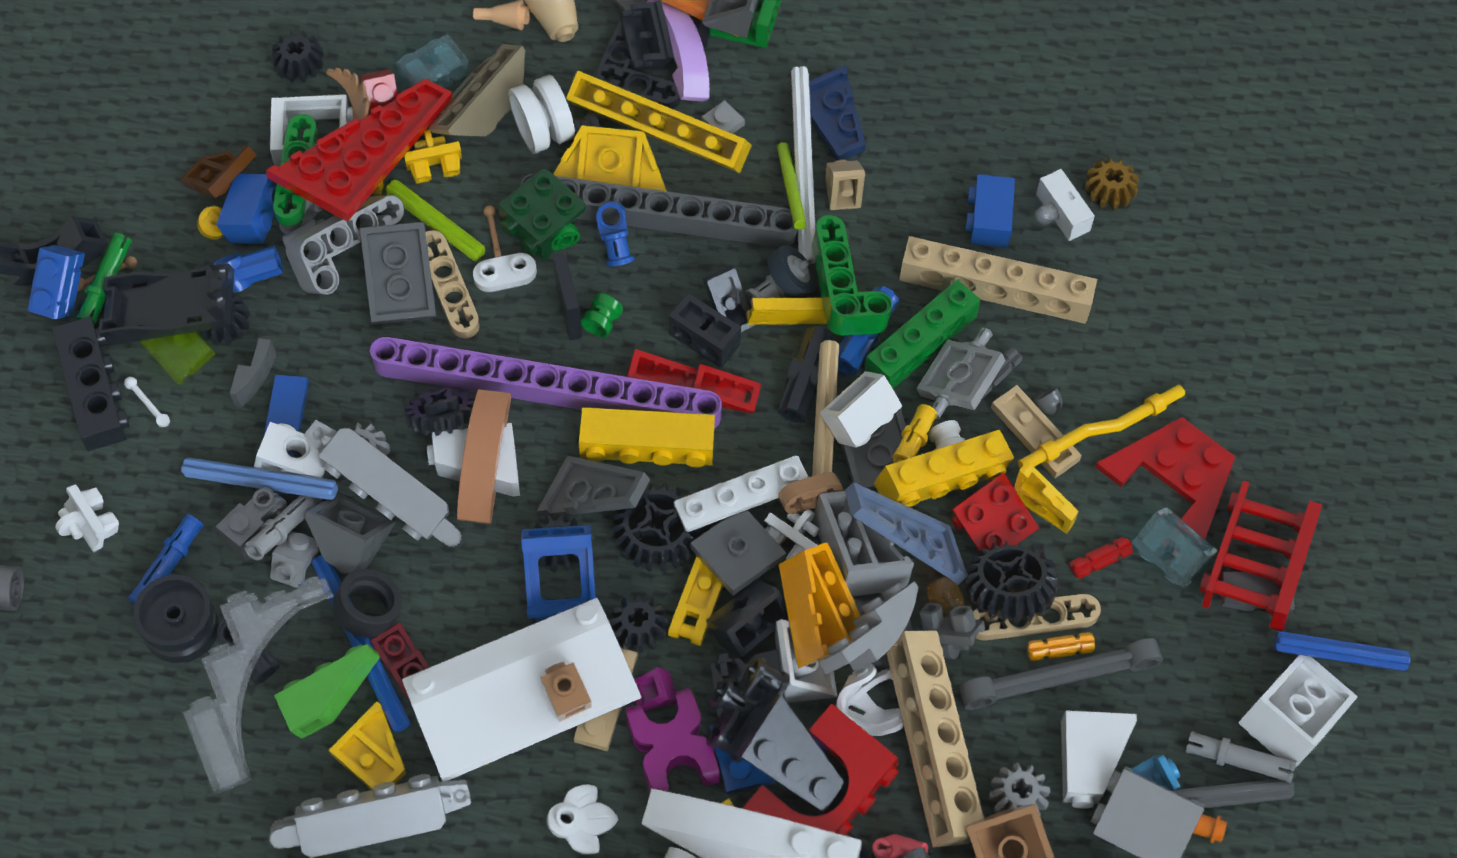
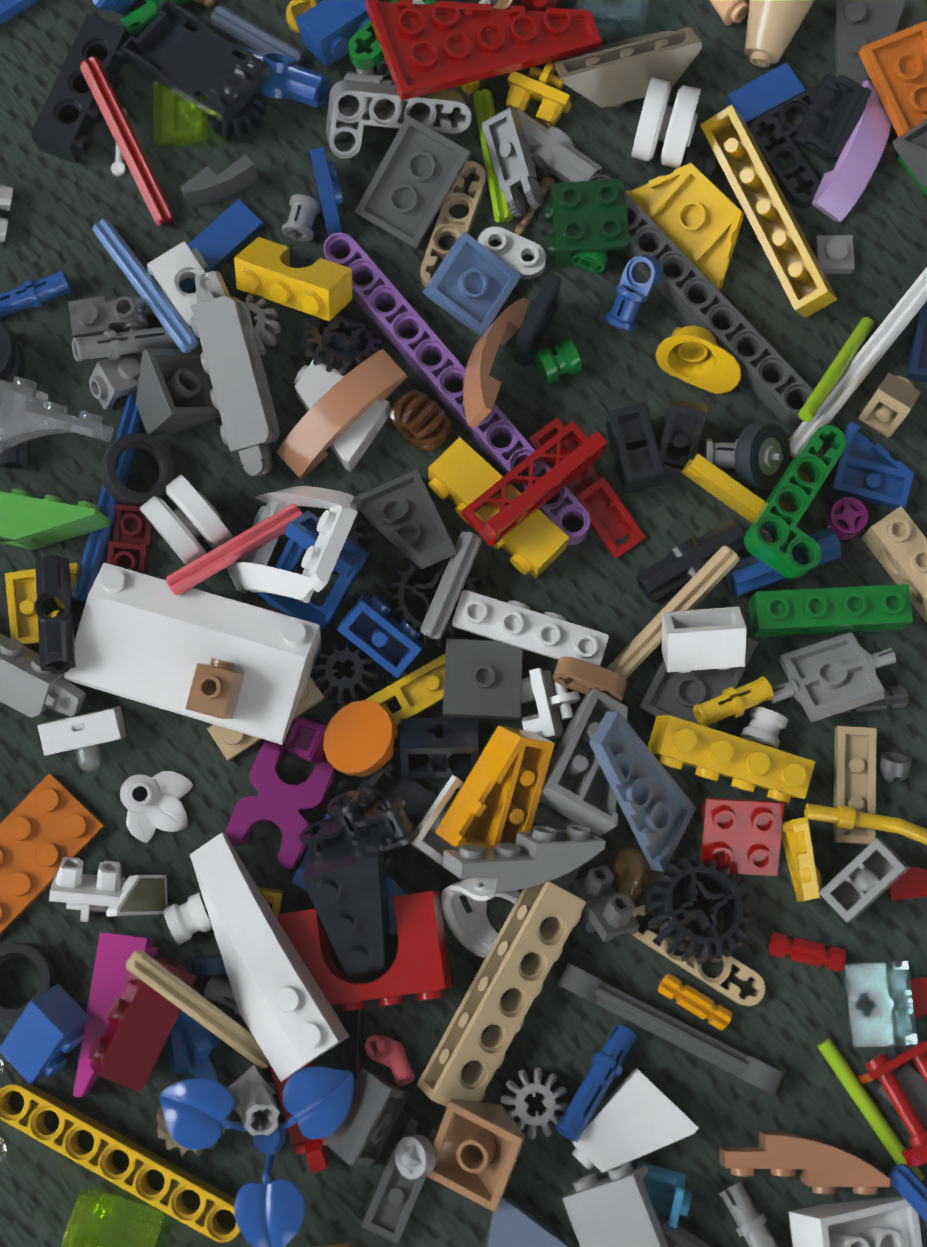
camera: 45 degrees right, 15 degrees up
(159, 392) = (127, 141): none -> red axle
(185, 261) = (252, 34): none -> sand blue axle
(340, 322) = (328, 189): none -> blue wing
(341, 356) = (301, 218): none -> light grey bush
(392, 388) = (315, 290): none -> yellow arch
(411, 749) = (55, 633): none -> black piece
(439, 607) = (187, 522): none -> white wheel
(455, 209) = (512, 161): none -> dark grey hinge
(471, 188) = (555, 152): none -> light grey piece
(488, 812) = (83, 735): none -> white piece
(491, 595) = (232, 550): none -> coral axle
(498, 308) = (471, 284): none -> medium blue plate
(543, 420) = (420, 420): none -> reddish brown gear
(568, 363) = (479, 387): none -> nougat slope
(569, 542) = (318, 560): none -> white wedge
(587, 52) = (765, 93): none -> blue tile
(643, 575) = (380, 634): none -> blue brick
(664, 505) = (451, 585): none -> light grey axle
(670, 396) = (538, 489): none -> red fence
(690, 654) = (360, 738): none -> orange tile
(697, 245) = (697, 360): none -> yellow piece
(873, 235) = (870, 473): none -> blue wing
(880, 266) = (850, 512): none -> magenta wheel
(1044, 731) = (604, 1069): none -> blue pin
(1095, 478) = (864, 880): none -> light grey brick
(1218, 620) = (865, 1103): none -> lime bar
(1221, 678) = (819, 1163): none -> nougat slope

